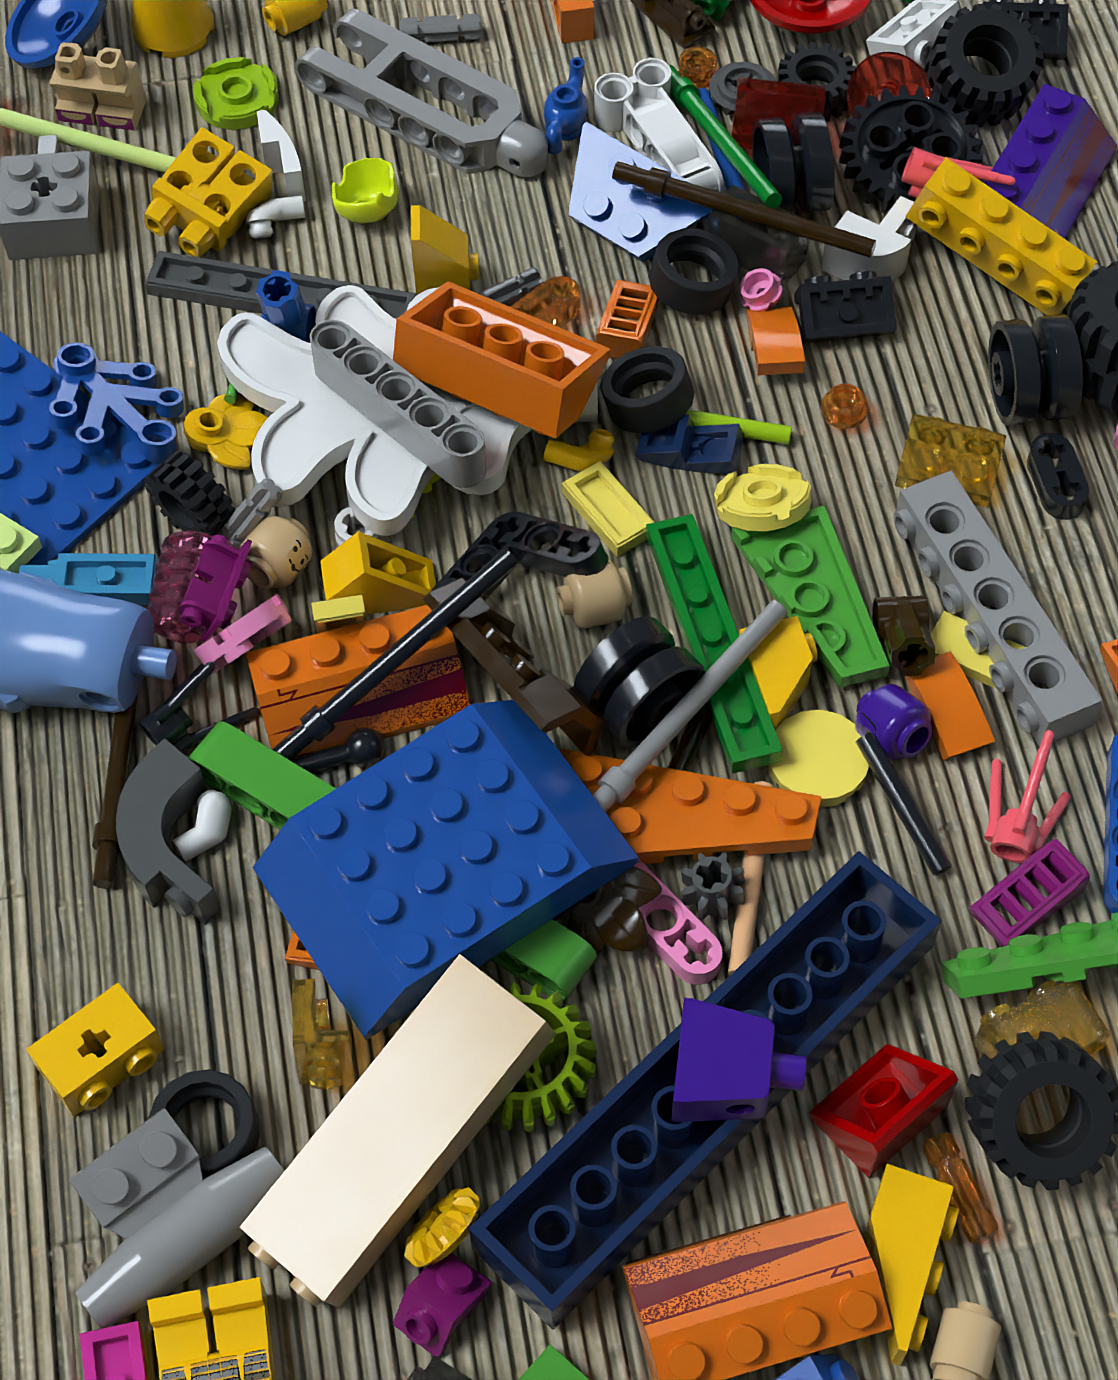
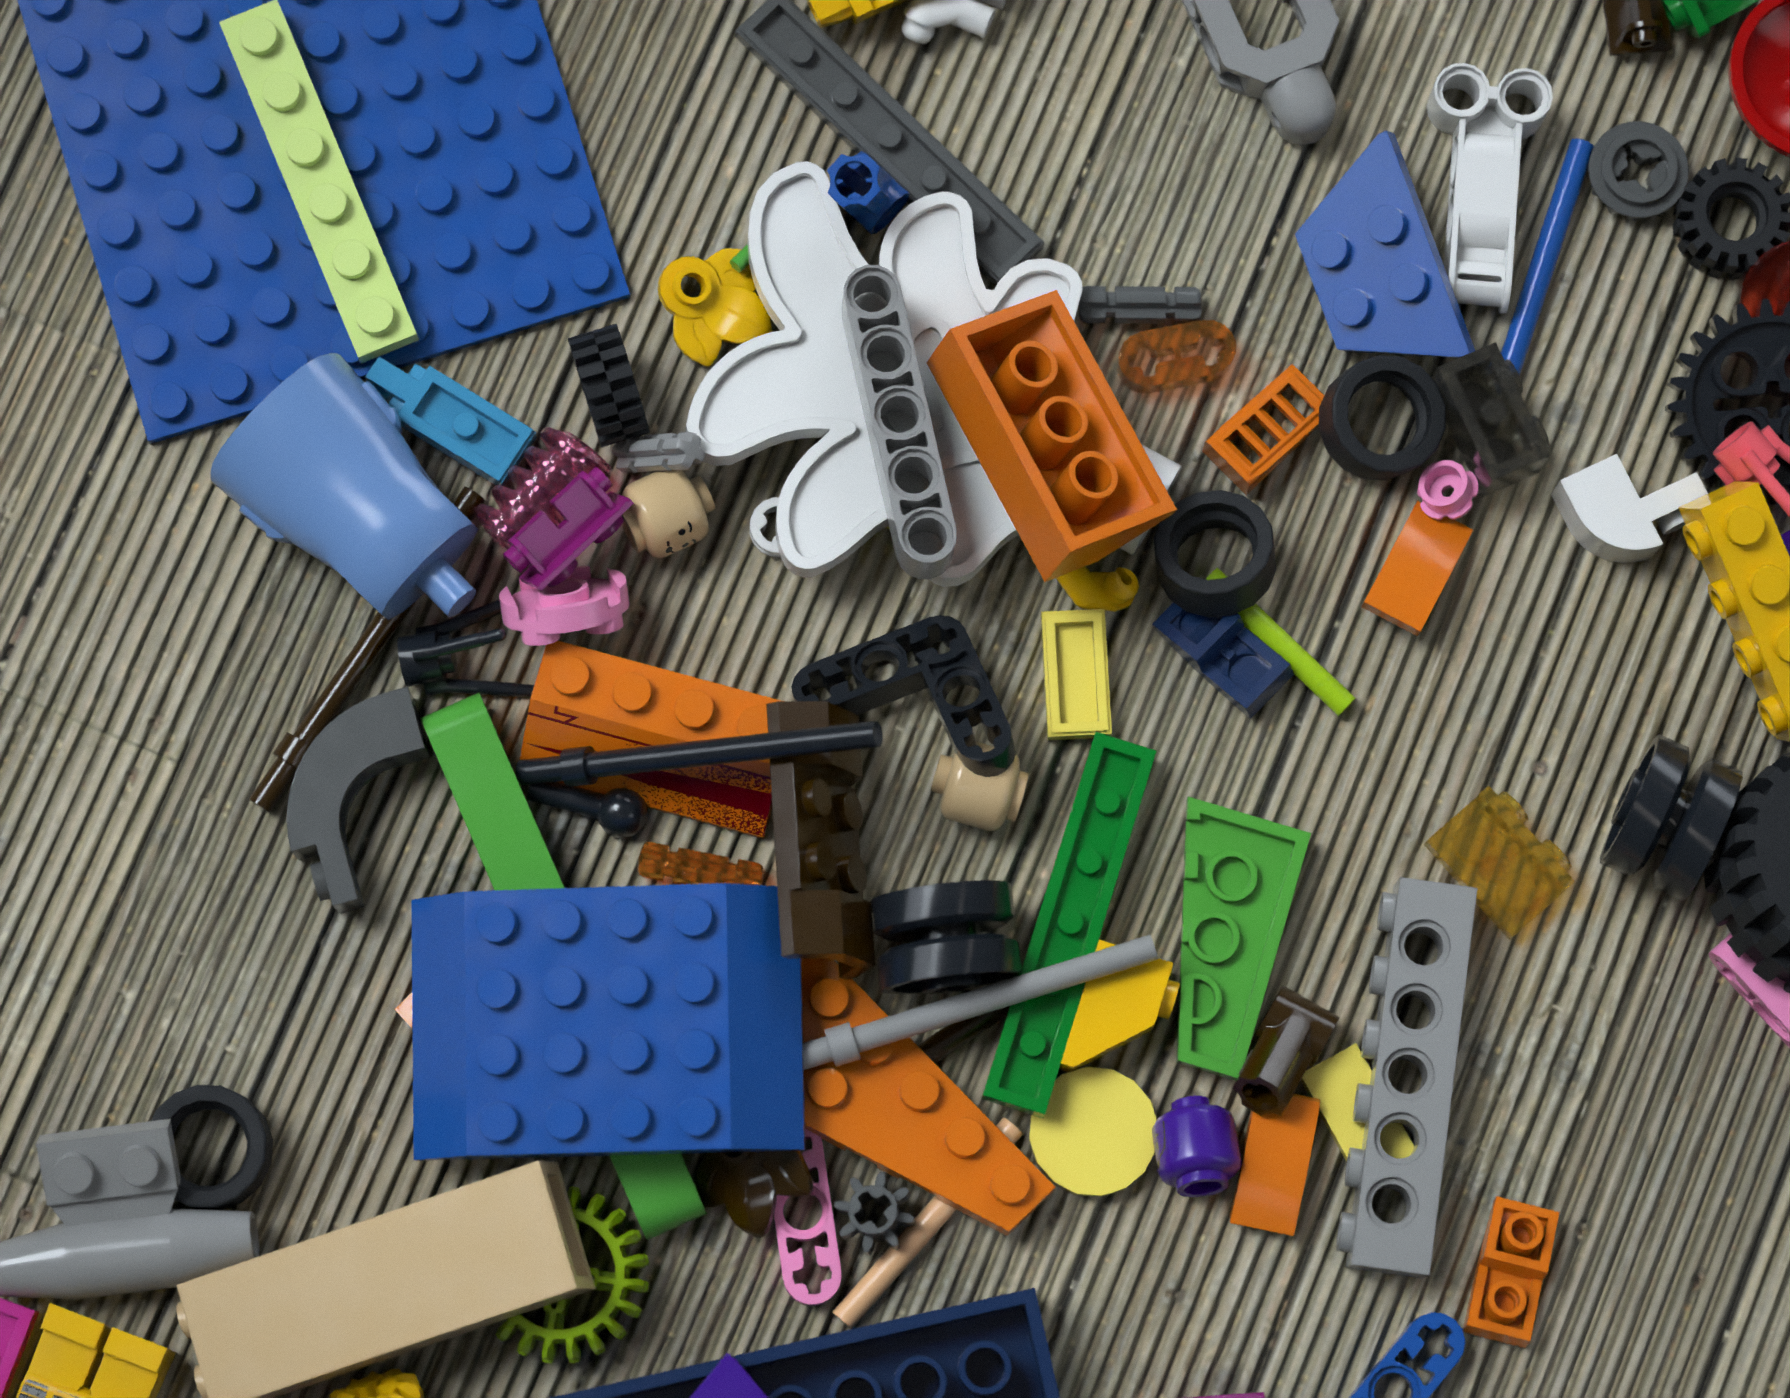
camera: 30 degrees right, 20 degrees up
(79, 365) = (603, 182): blue plant -> none
(107, 1024) = (114, 985): yellow brick -> none
(210, 826) = (406, 807): white arm -> none
(321, 1055) = (362, 1122): clear yellow bracket -> none
(338, 613) = (678, 651): light yellow tile -> none
(366, 190) = (1069, 56): neon yellow hair -> none
(378, 571) = (758, 613): yellow slope -> none
(440, 252) = (1093, 220): yellow slope -> none
(566, 109) = (1393, 73): blue piece -> none
(660, 183) = (1404, 291): dark brown bar -> none
(686, 96) = (1555, 141): green bar -> none
(699, 57) = (1591, 87): clear orange bush -> none
(763, 498) = (1250, 779): light yellow tile -> none
(770, 99) = (1640, 250): clear red brick -> none
(796, 160) = (1601, 350): black wheel -> none
(846, 307) = (1530, 577): black bracket -> none
(846, 397) = (1434, 691): clear orange plate -> none
(903, 804) = (1141, 1247): black bar -> none
(1016, 833) = (1237, 1354): coral plant -> none
(1048, 479) = (1627, 960): black beam -> none

